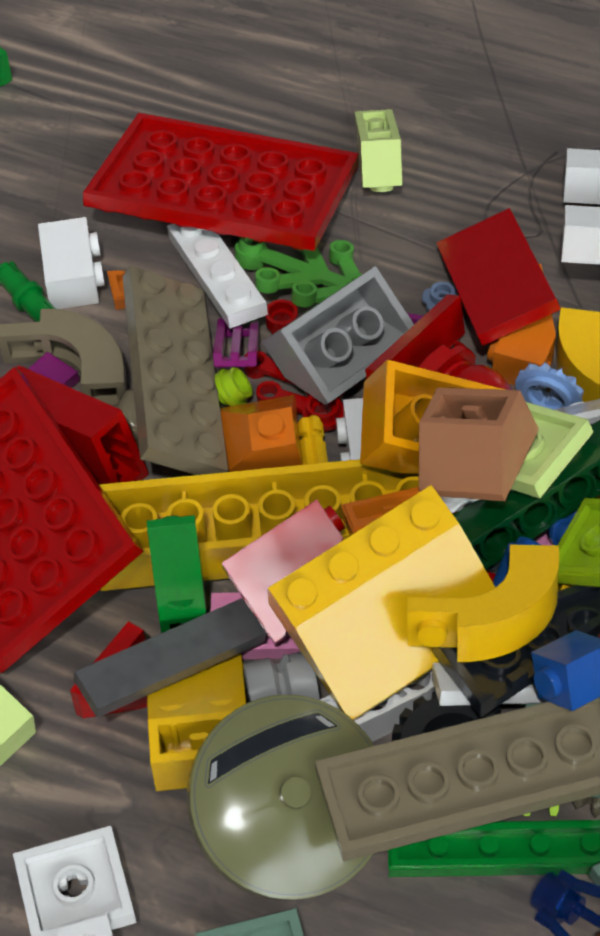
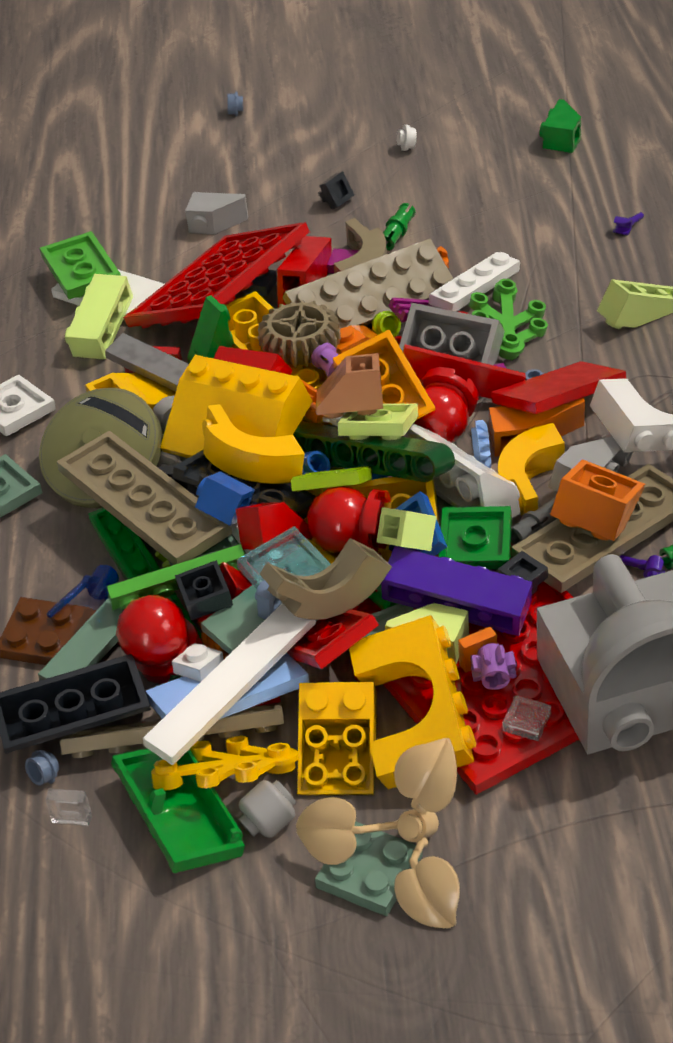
camera: 65 degrees right, 10 degrees down
(69, 264) = (438, 221): white brick -> none
(205, 99) = (625, 224): none -> dark purple hand
(223, 181) = (544, 252): red plate -> none
(255, 482) = (297, 331): none -> dark tan gear
(322, 453) = (329, 352): none -> medium lavender bush

